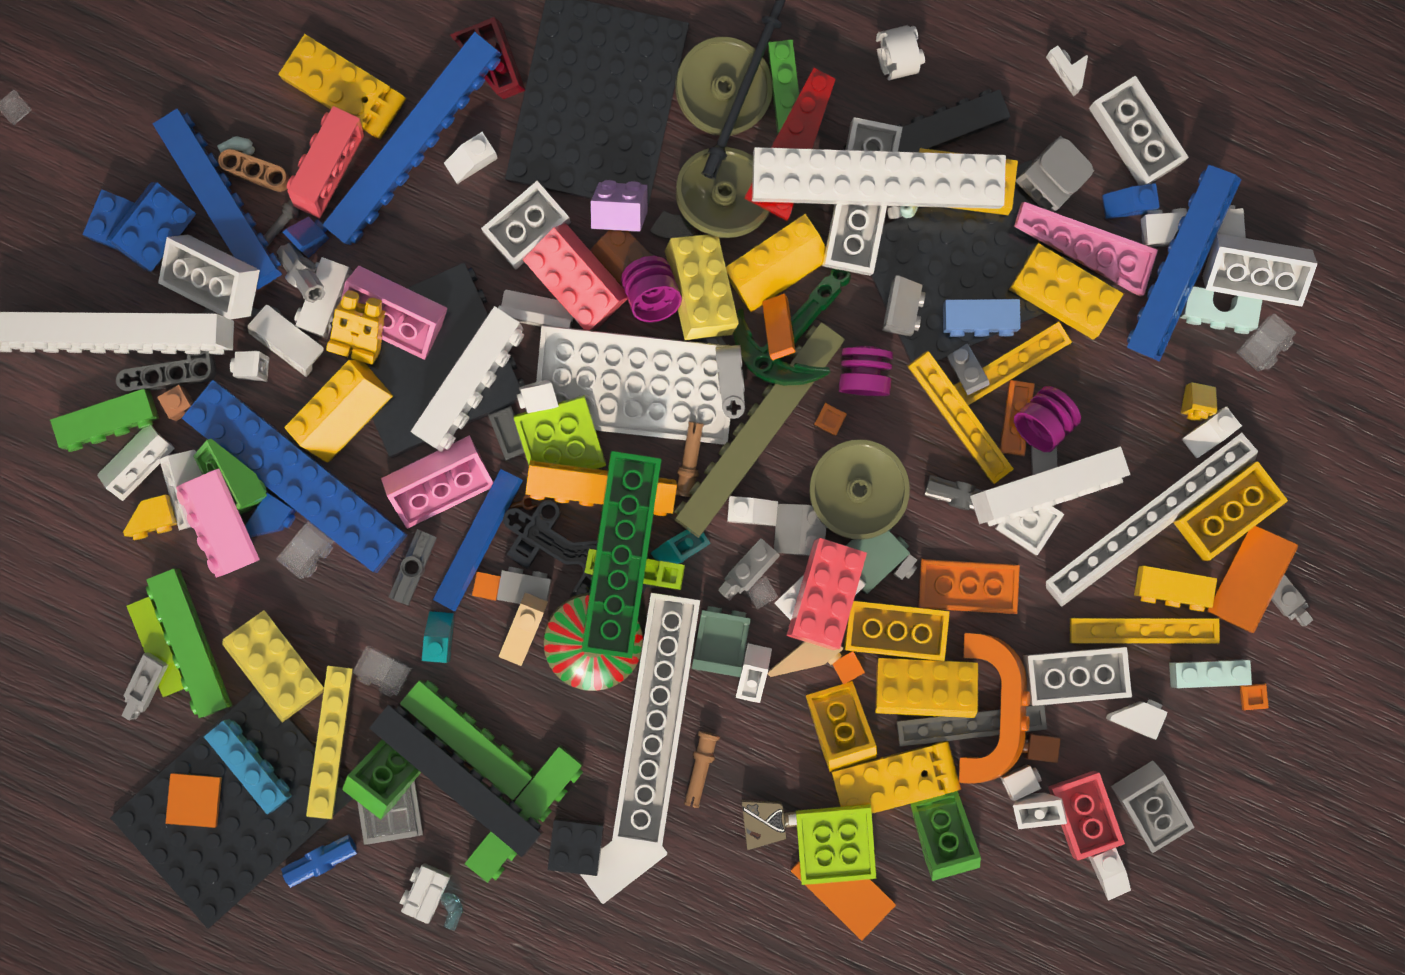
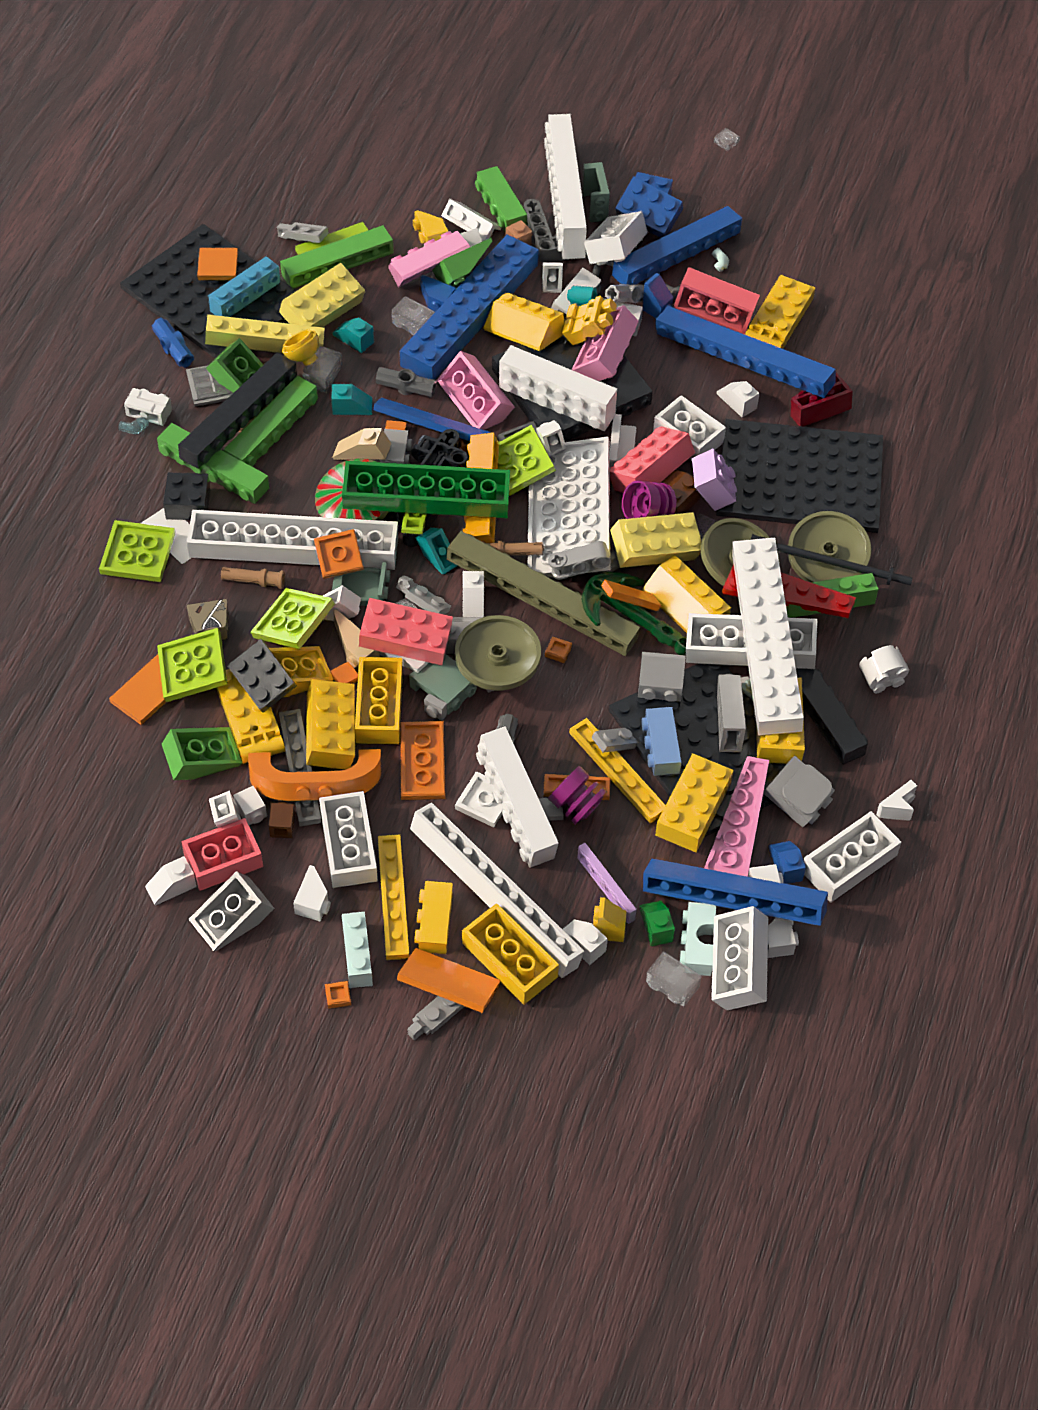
camera: 85 degrees right, 30 degrees down
(88, 291) = (596, 187): none -> sand green panel
(246, 162) = (706, 259): medium nougat beam -> none
(304, 331) = (581, 294): none -> teal brick
(324, 628) = (356, 334): none -> teal slope
(365, 697) = (302, 347): none -> yellow piece
(651, 907) = (137, 551): none -> lime plate
(696, 666) = (338, 554): none -> orange tile
(775, 724) = (292, 618): none -> lime plate
(866, 371) = (601, 661): magenta wheel -> none
(866, 764) = (261, 675): none -> plate
(951, 234) = (730, 713): none -> light grey slope
(960, 417) = (572, 732): yellow plate -> none
(1147, 399) = (605, 881): none -> lavender tile
(1195, 351) = (657, 923): none -> green slope

